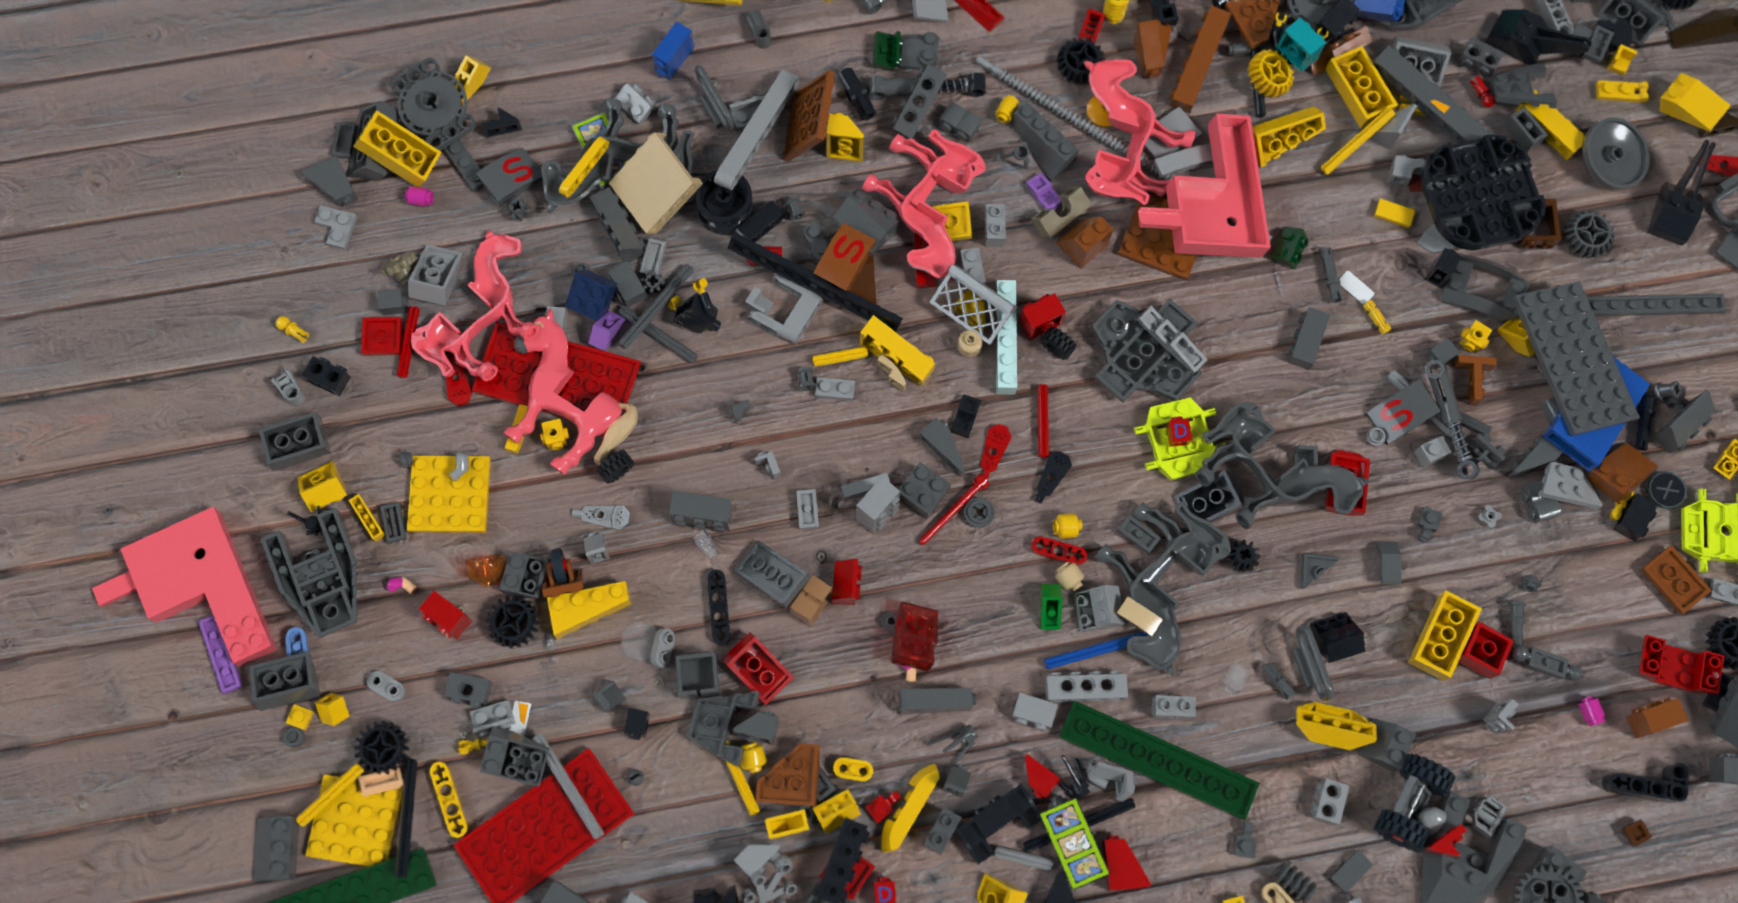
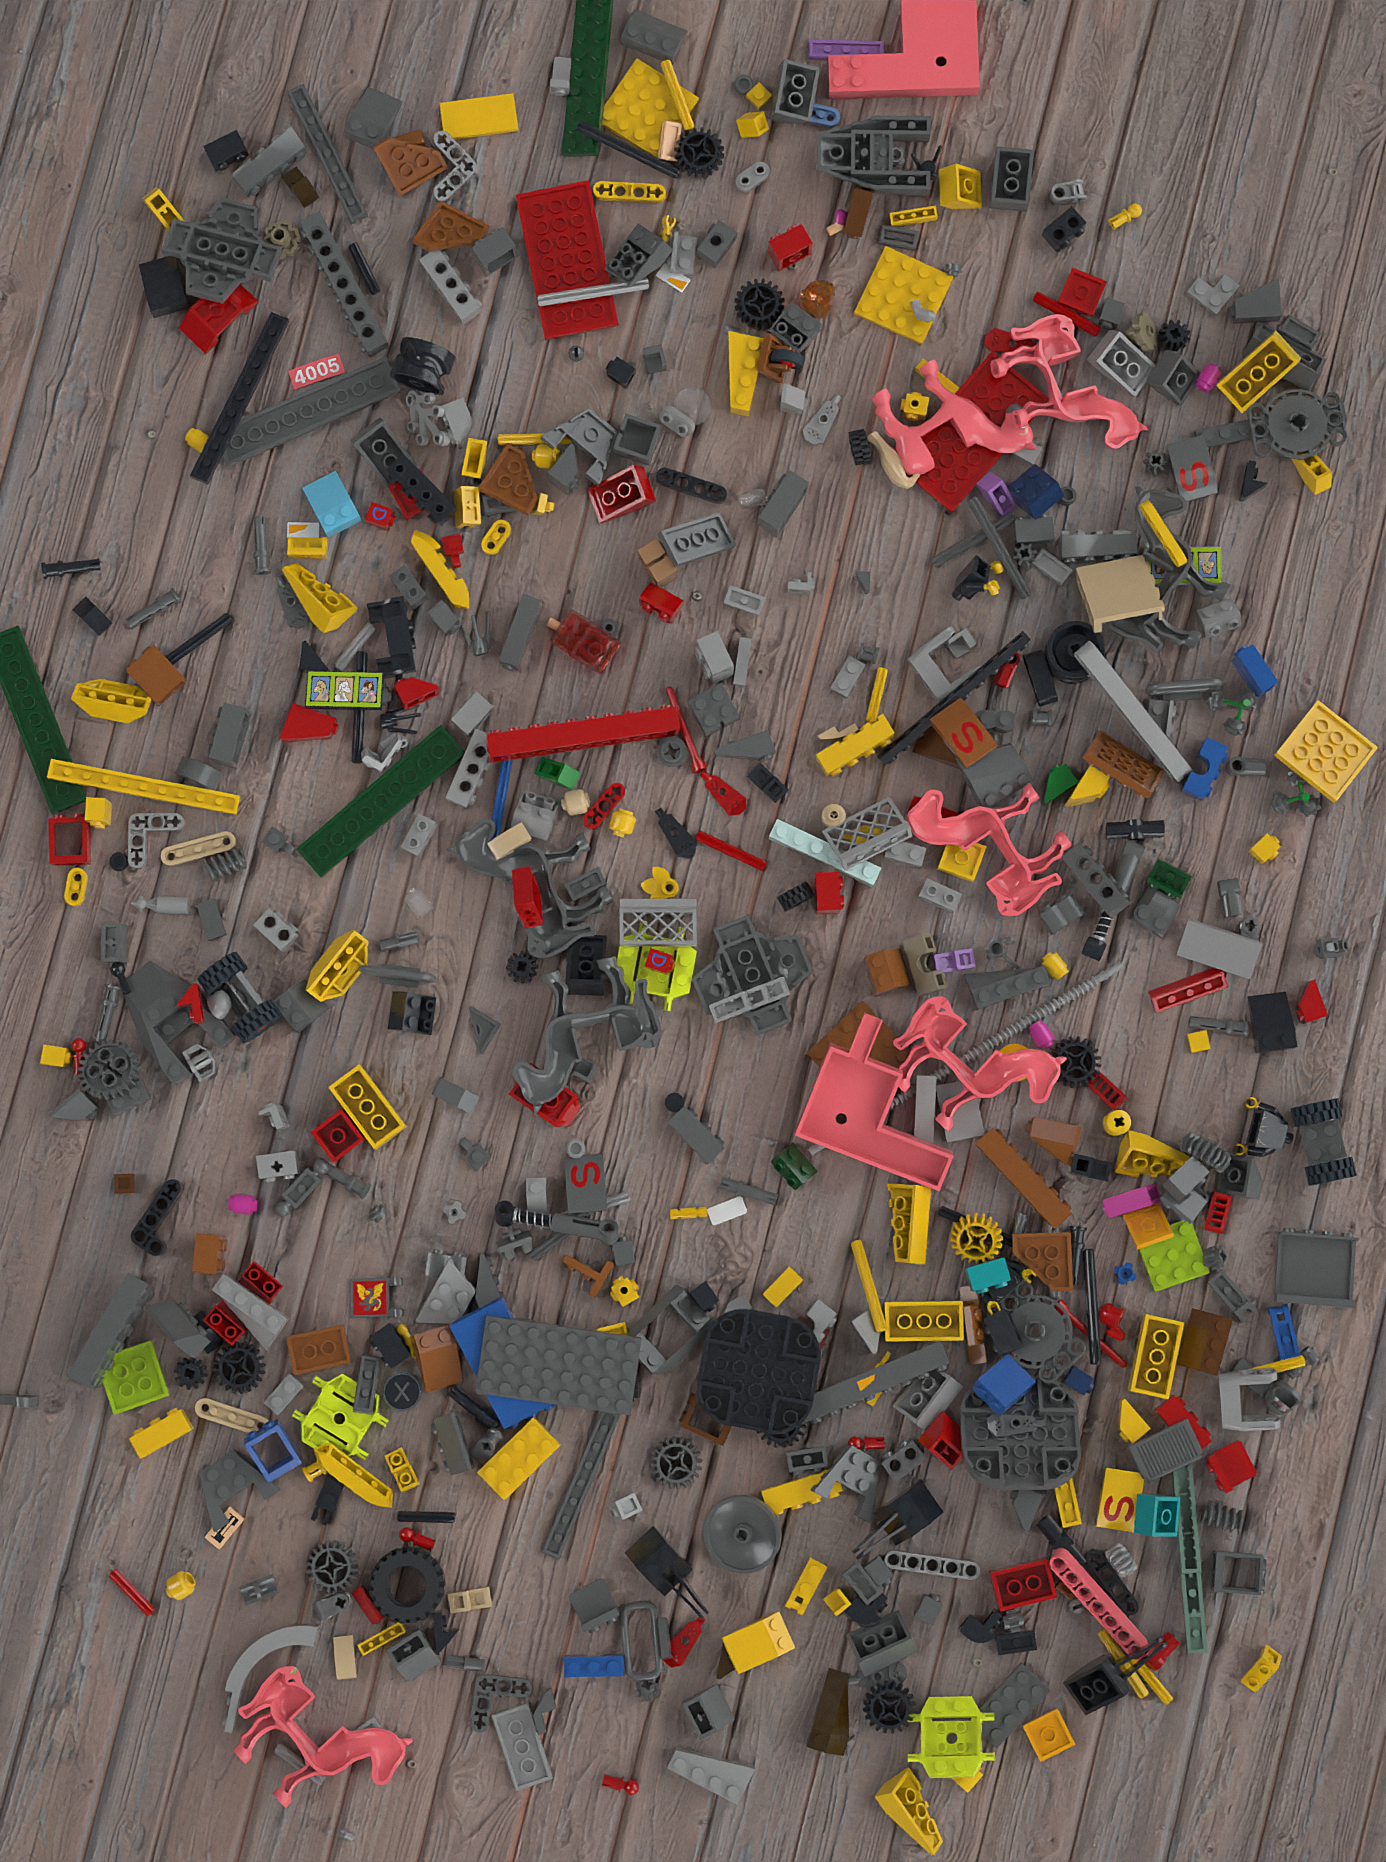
camera: 120 degrees right, 10 degrees up
(382, 567) = (858, 212): none -> reddish brown slope
(391, 240) = (1181, 335): none -> black gear
(430, 226) = (1173, 377): none -> dark grey slope
(701, 51) = (1245, 701): none -> dark grey plant
(763, 56) = (1212, 754): none -> blue arch
(801, 737) = (542, 505): none -> yellow tile
(847, 171) = (1058, 782): none -> green slope
(1008, 595) = (582, 734): none -> red brick
(1071, 95) = (1041, 1035): none -> dark pink brick
(1106, 471) = (657, 885): none -> yellow plate
(1129, 459) = (661, 907): none -> light grey fence
(1184, 574) = (527, 897): none -> red window
(1289, 370) = (674, 1102): none -> black tile
(1449, 29) = (943, 1440): none -> red slope
(1540, 705) = (287, 1159): none -> light grey brick
(1603, 554) = (372, 1298): none -> flag
(1650, 258) = (624, 1507): none -> light grey bracket
(1665, 361) = (519, 1458): none -> yellow brick
(1681, 649) = (255, 1313): none -> light grey wedge
(1683, 521) = (366, 1384): none -> dark grey tile

